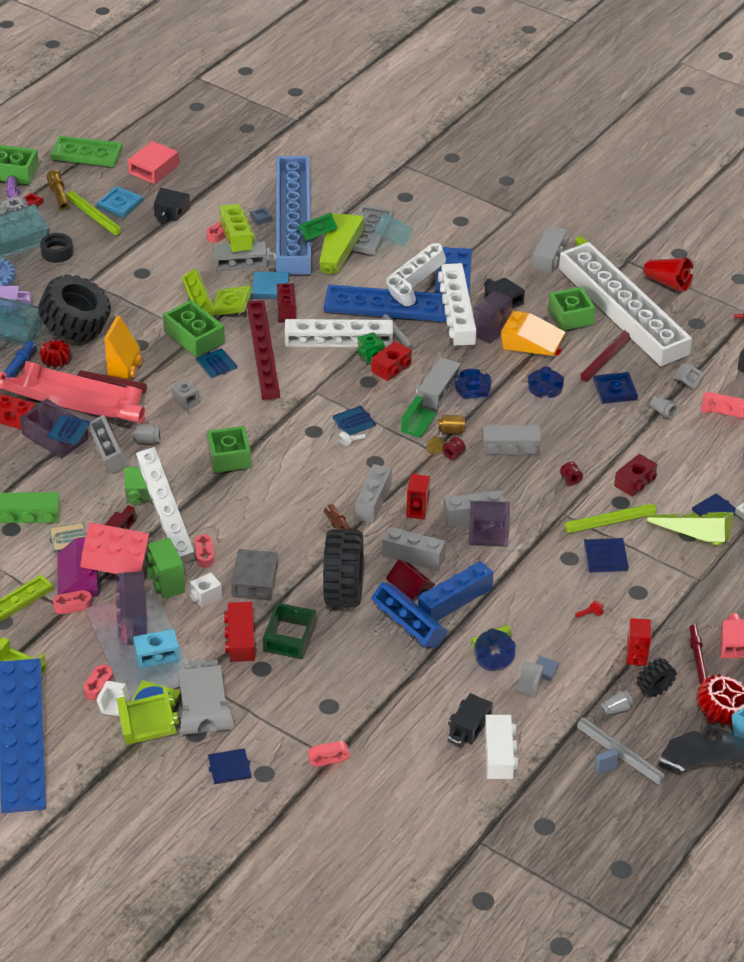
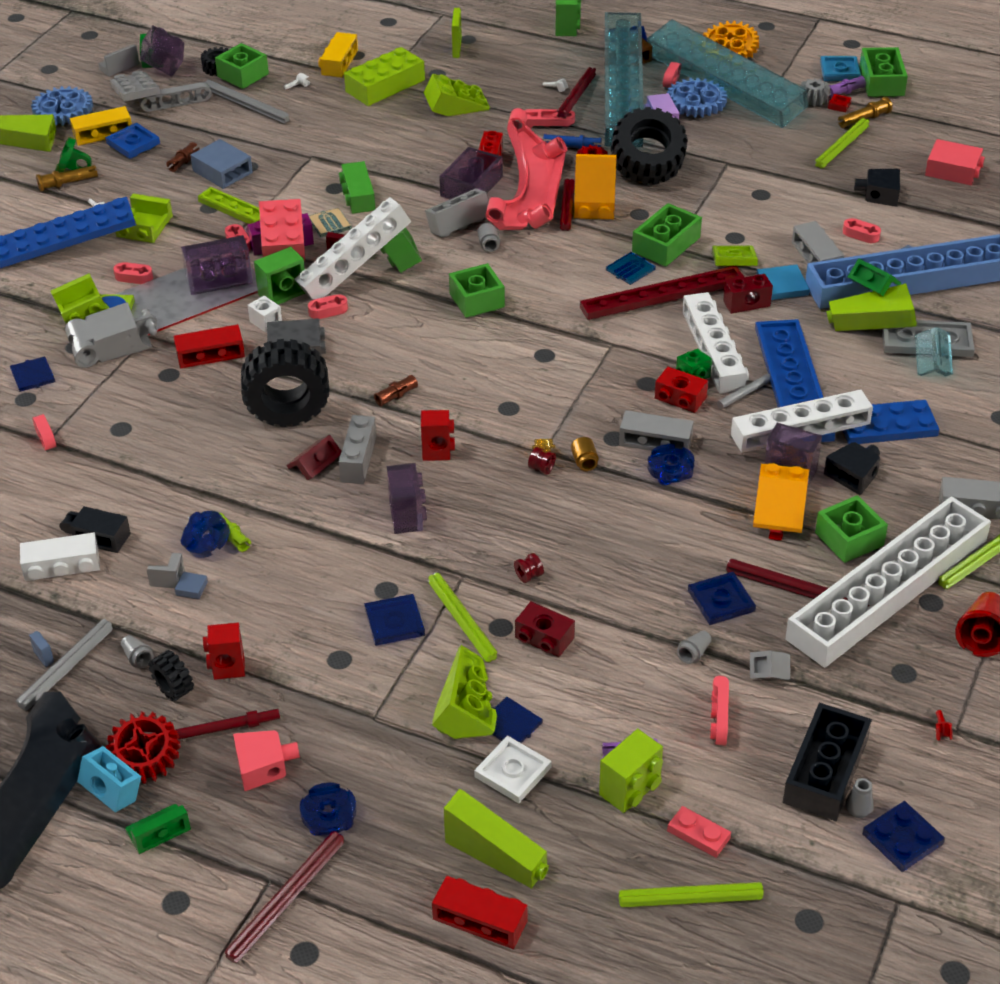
camera: 80 degrees right, 0 degrees up
(56, 255) = (769, 122): black tyre -> none
(68, 429) = (457, 176): clear blue piece -> none
(86, 151) = (946, 117): bright green plate -> none
(107, 697) = (108, 280): white panel -> none
(119, 202) = (873, 156): dark azure tile -> none
(156, 648) = (175, 295): medium azure brick -> none
(182, 391) = (561, 252): light grey brick -> none
(197, 291) = (733, 232): lime tile -> none
(236, 227) = (849, 226): lime brick -> none
(288, 645) = (213, 366): dark green window -> none
(347, 439) = (534, 378): white hand -> none
(354, 420) = (571, 381): piece -> none
(373, 493) = (460, 403): light grey brick -> none
(409, 614) = (246, 458): blue brick -> none
(414, 271) = (829, 368): white beam -> none
(416, 419) = (589, 423): green panel -> none
(457, 508) = (439, 490): light grey brick -> none
(457, 591) = (293, 491): blue brick -> none
(511, 440) = (573, 507): light grey brick -> none
(545, 382) = (699, 518): clear blue plate -> none
(595, 607) = (295, 619): red hand -> none

